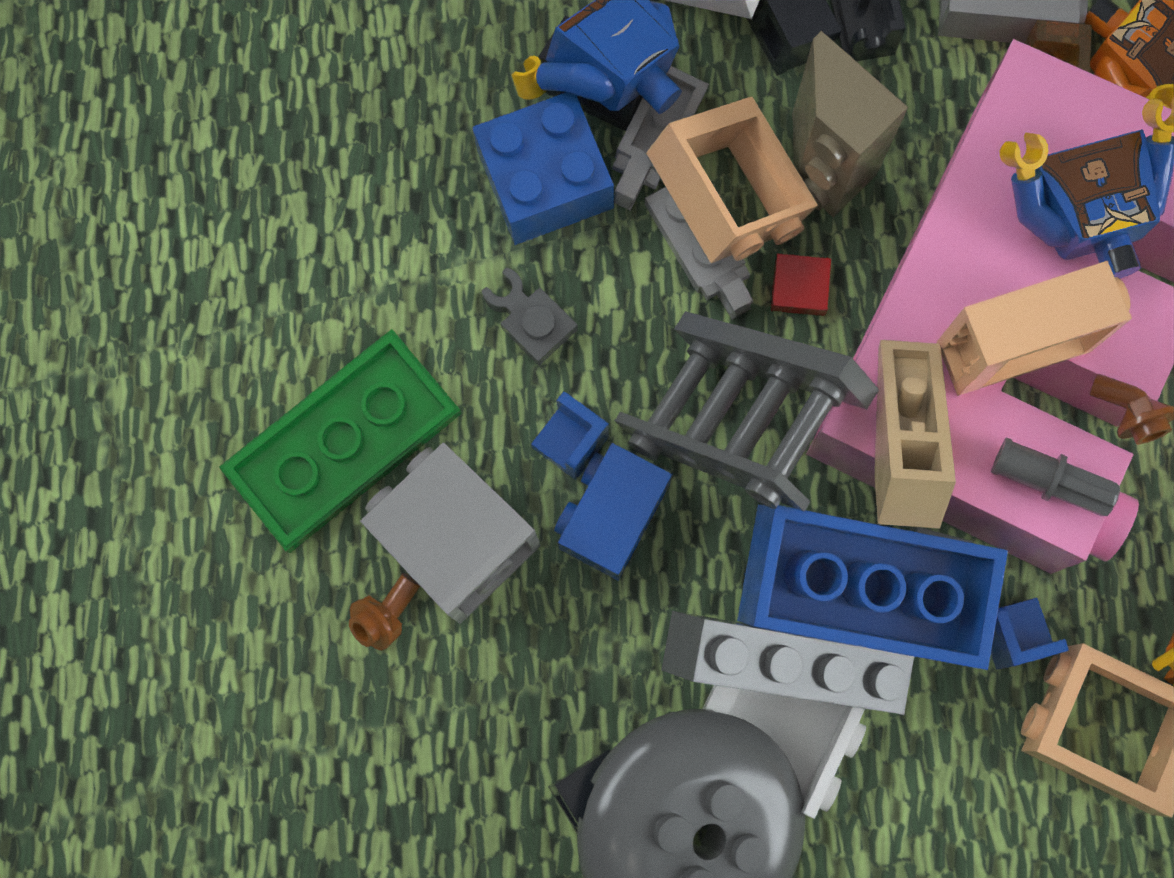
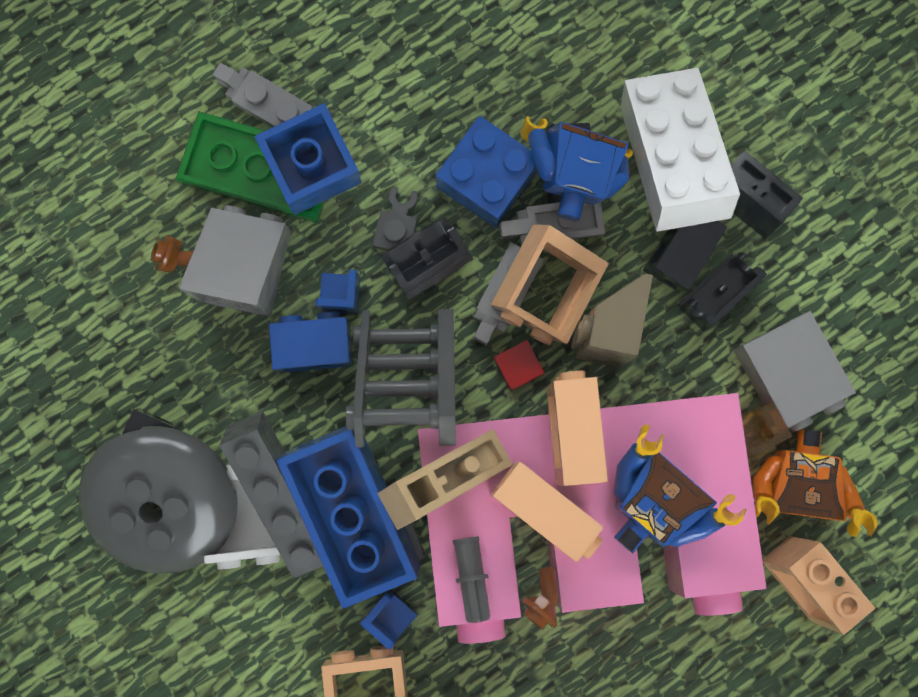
camera: 50 degrees right, 5 degrees up
(262, 378) = (259, 96): none -> light grey hinge
(384, 359) = (309, 159): none -> blue brick
(600, 304) = (426, 257): none -> black hinge
(956, 231) = (576, 429): none -> light nougat window

